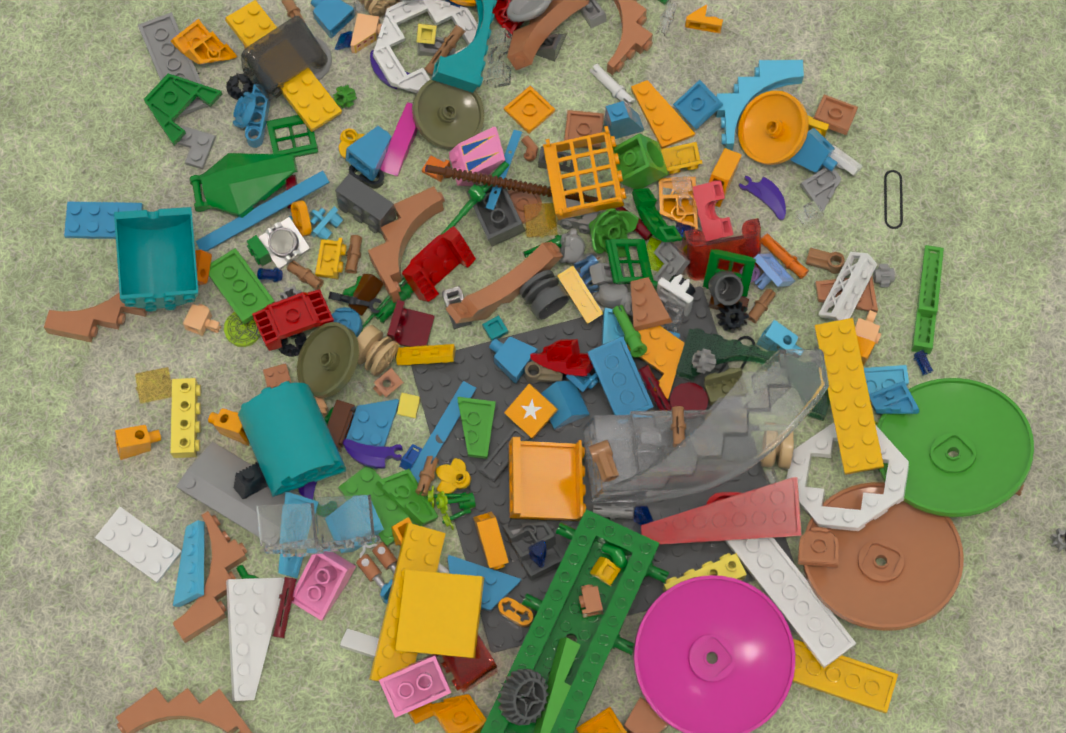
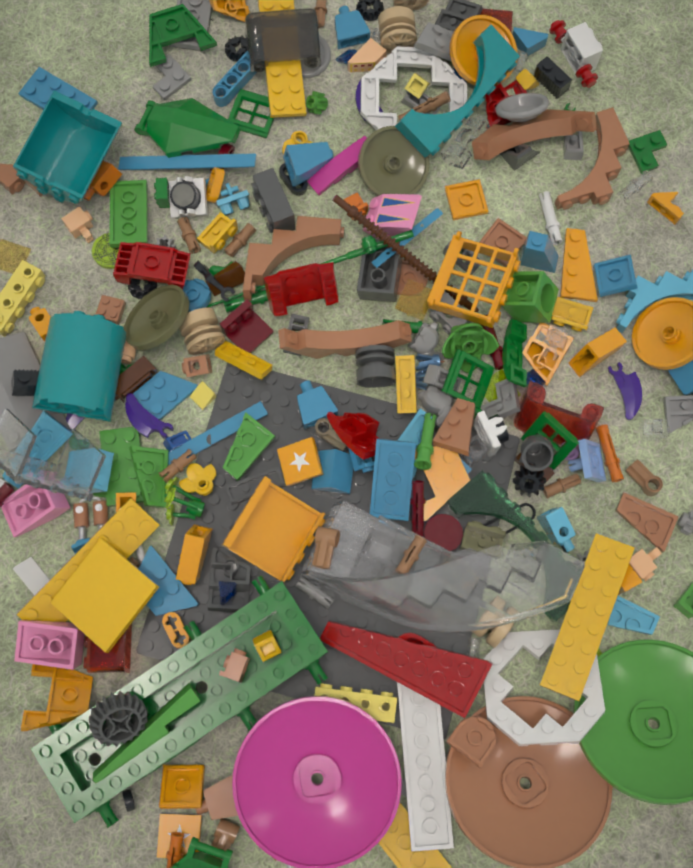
camera: 30 degrees right, 5 degrees up
(244, 110) = (225, 68): dark azure tile -> none
(270, 274) = (160, 218): clear blue pin -> none
(495, 328) = (317, 371): teal plate -> none
(532, 148) = (447, 233): nougat arm -> none
(617, 554) = (284, 639): green arm -> none
(642, 515) = (339, 612): clear blue slope -> none
(703, 361) = (475, 507): light grey gear -> none
(706, 197) = (569, 362): coral arch -> none
(852, 287) = (652, 517): white fence -> none
(894, 400) = (628, 642): dark azure wing -> none
(922, 361) = (677, 622): clear blue pin -> none

